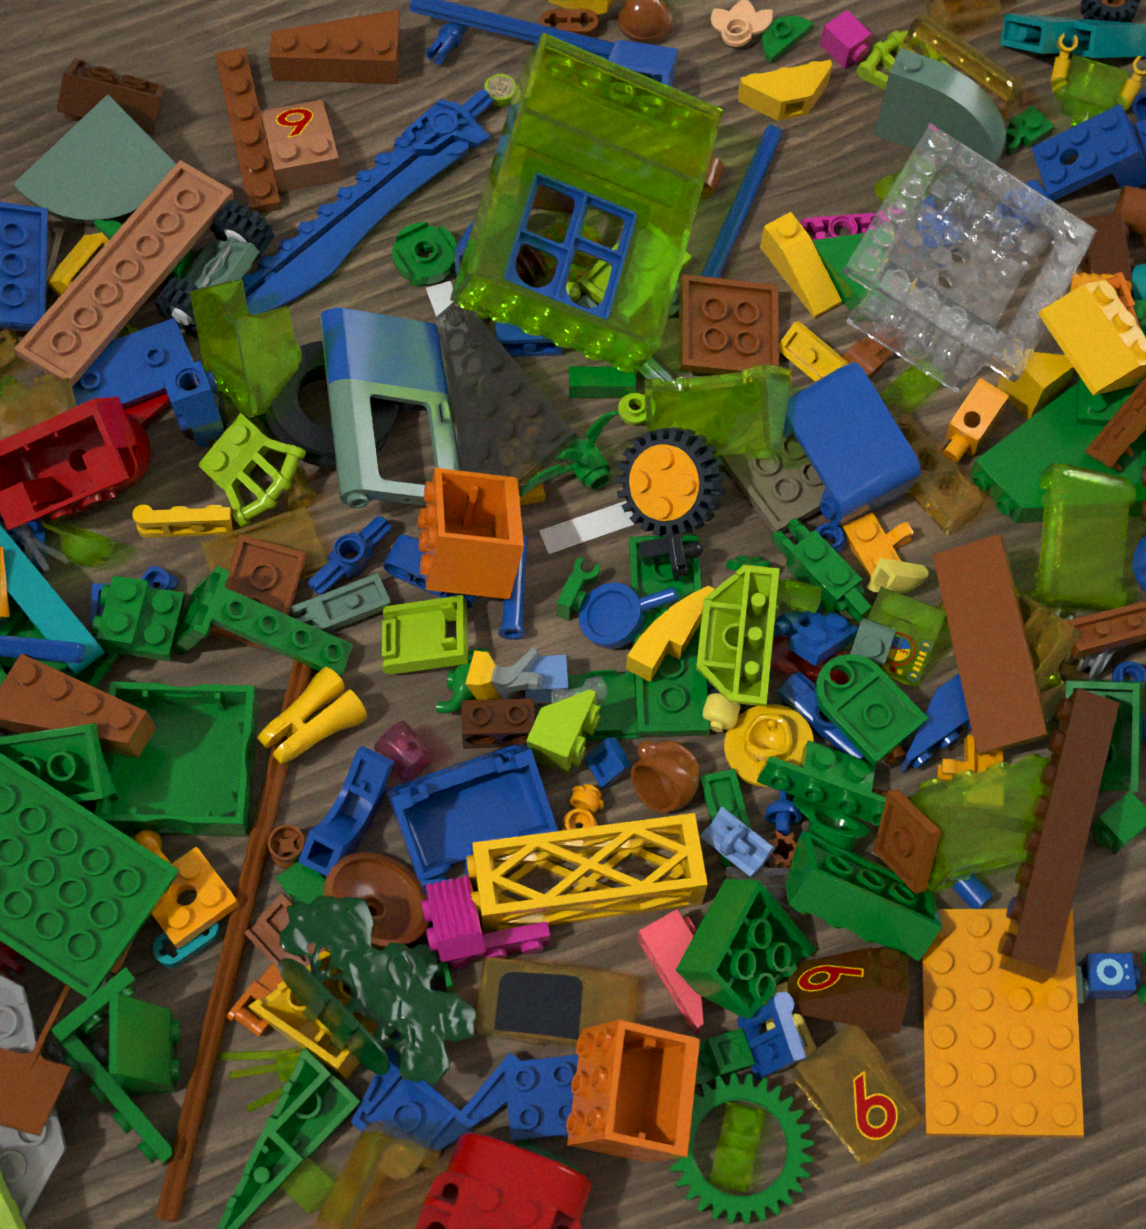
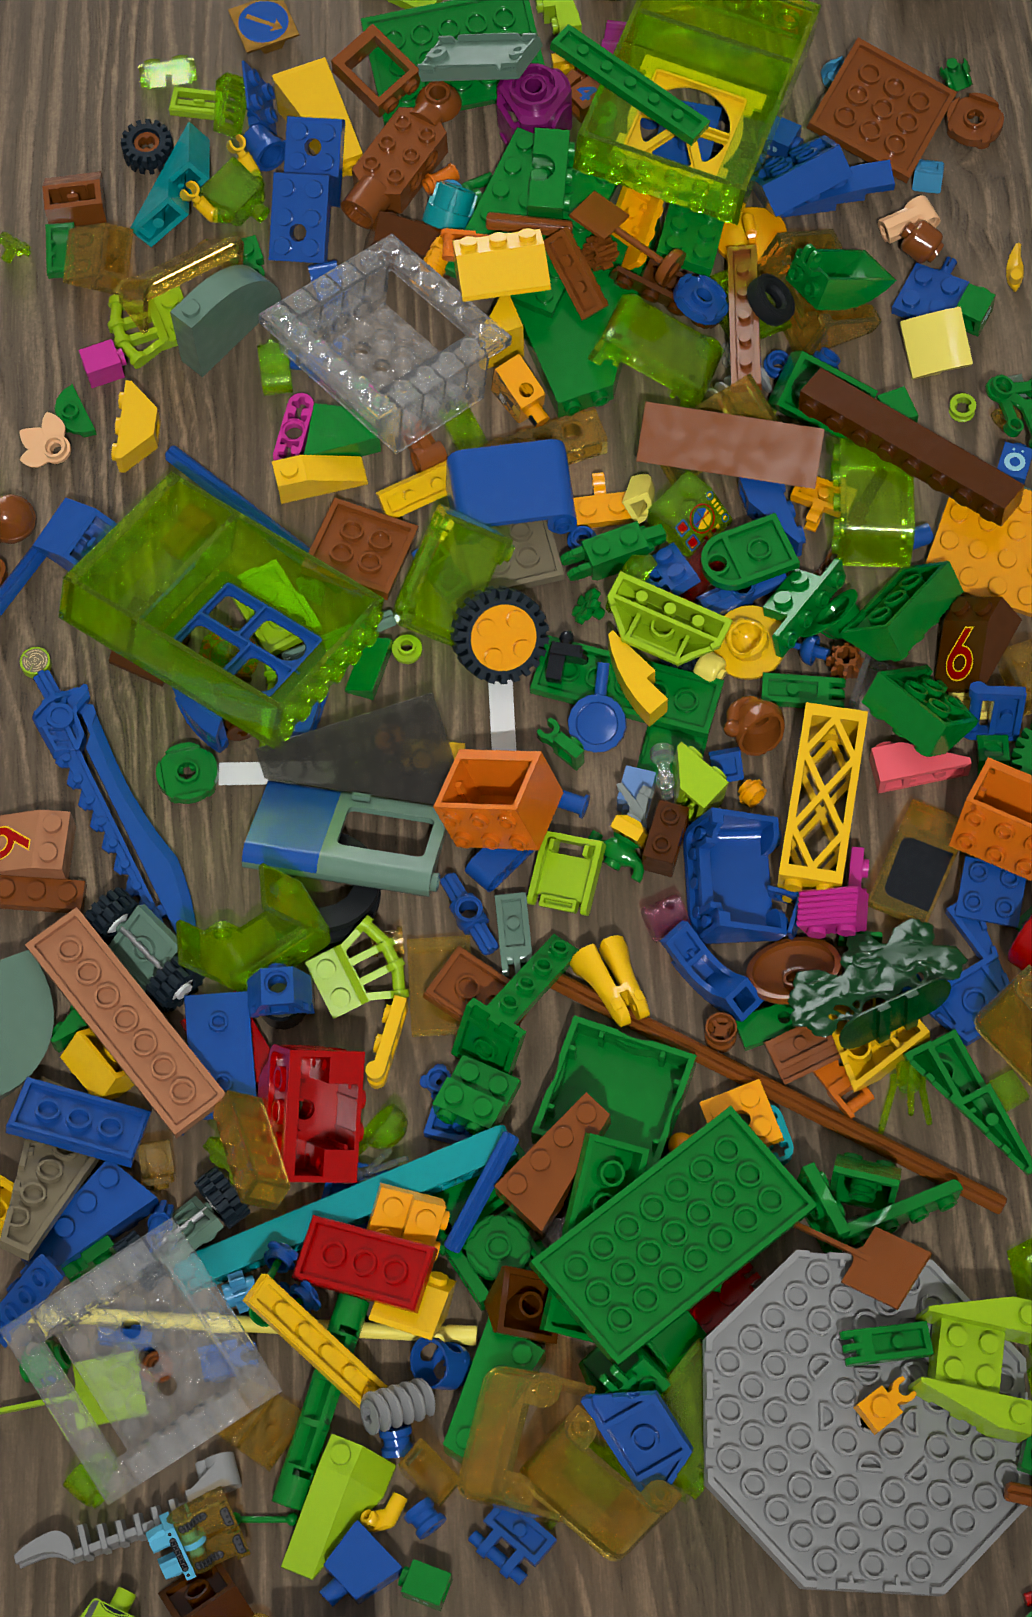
camera: 65 degrees left, 0 degrees up
(578, 816) = (771, 797): light orange plate -> none
(583, 459) = (450, 698): green plant -> none
(737, 842) = (835, 682): medium blue hips -> none
(873, 641) = (691, 533): sand green plate -> none
(907, 841) = (871, 562): dark orange plate -> none

